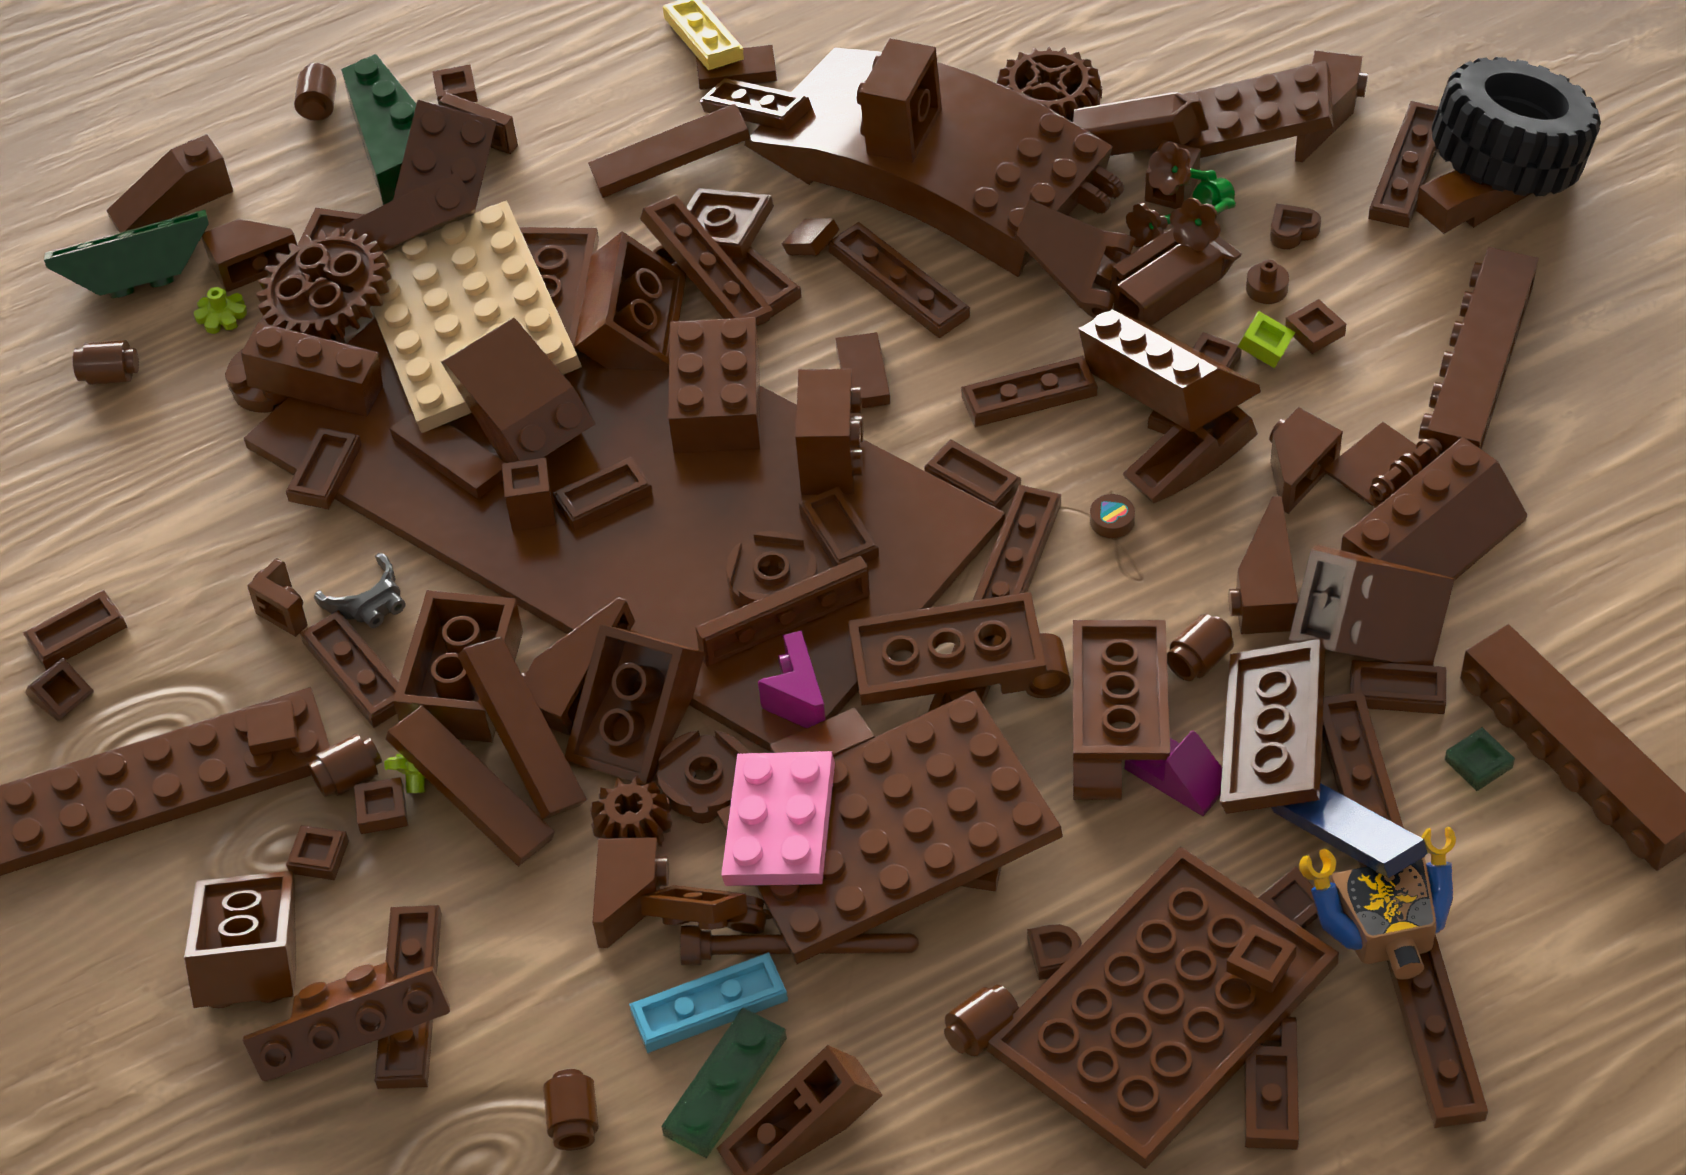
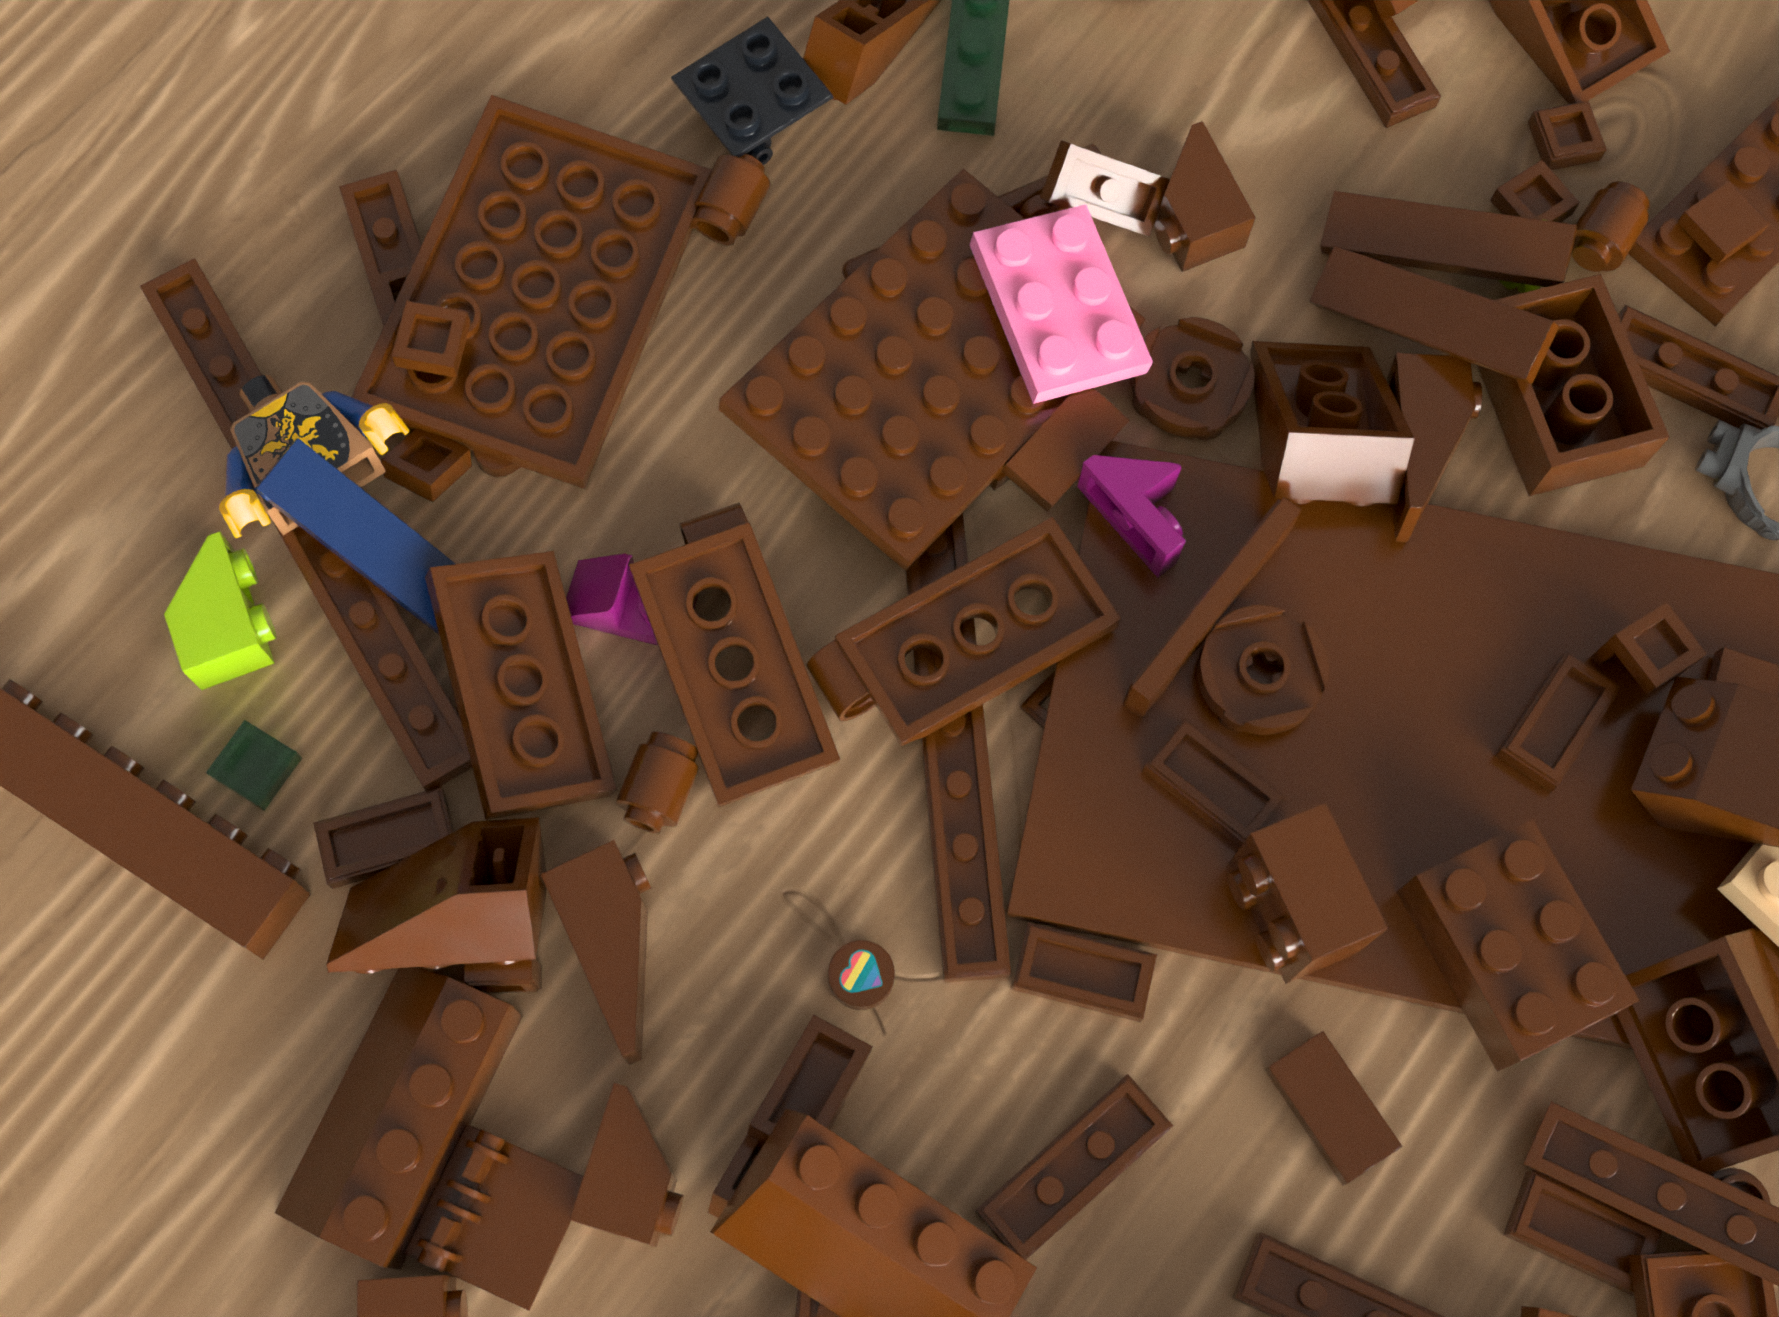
camera: 150 degrees right, 20 degrees up
(631, 812) = (1247, 265): reddish brown gear -> none
(707, 1002) = (1038, 124): medium azure tile -> none
(927, 1086) = (752, 89): none -> black hinge
(1052, 947) = (687, 322): reddish brown tile -> none
(1483, 847) = (216, 619): none -> lime slope

